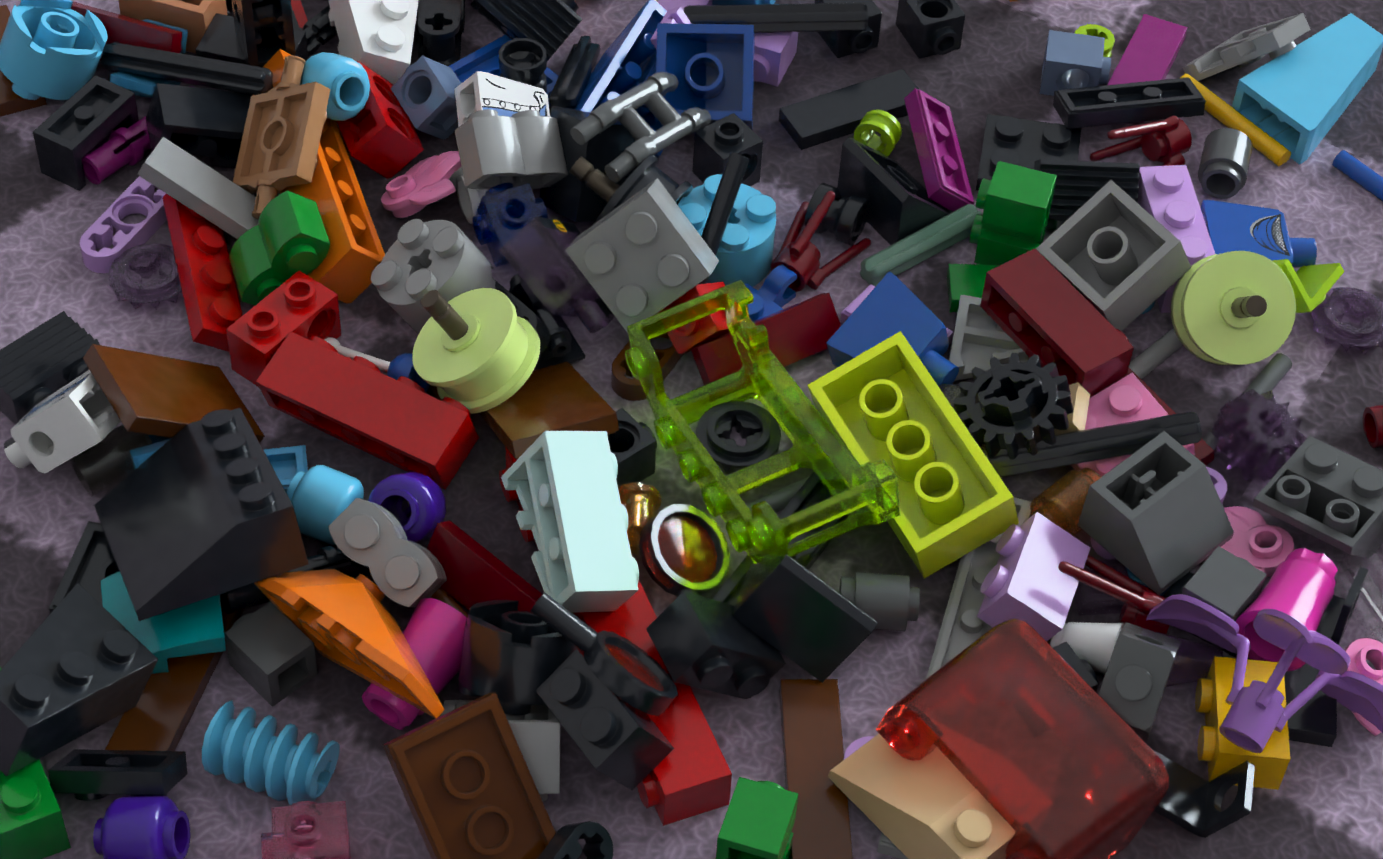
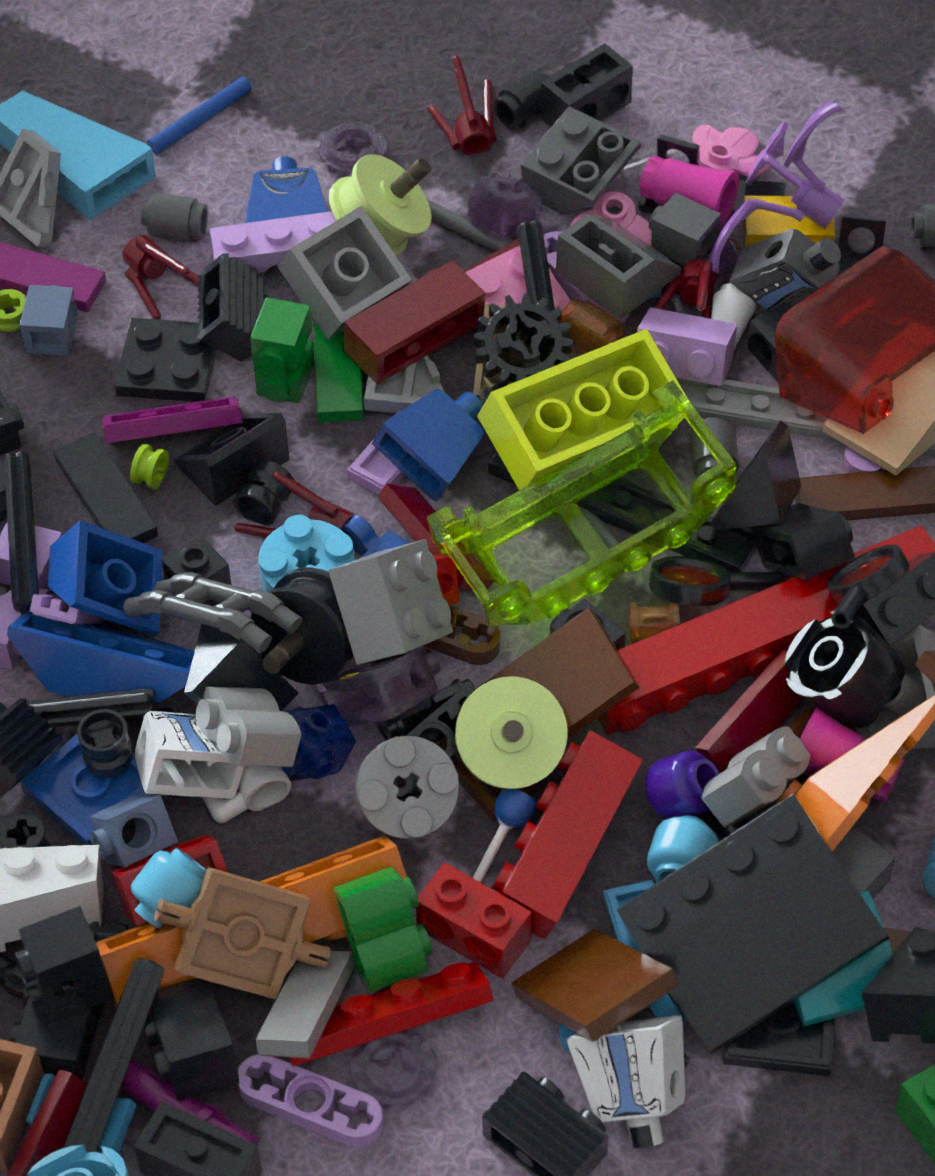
camera: 90 degrees left, 5 degrees up
(421, 184) = (249, 818): bright pink plate -> none
(576, 519) = (719, 621): light aqua wedge -> none
(724, 202) = (322, 533): black bar -> none
(749, 420) = (551, 544): black gear -> none
(919, 245) = (300, 443): sand green axle -> none
(1128, 102) = (108, 277): black tile -> none
(1233, 119) = (104, 216): yellow bar -> none
(1310, 282) = (328, 163): lime bracket -> none

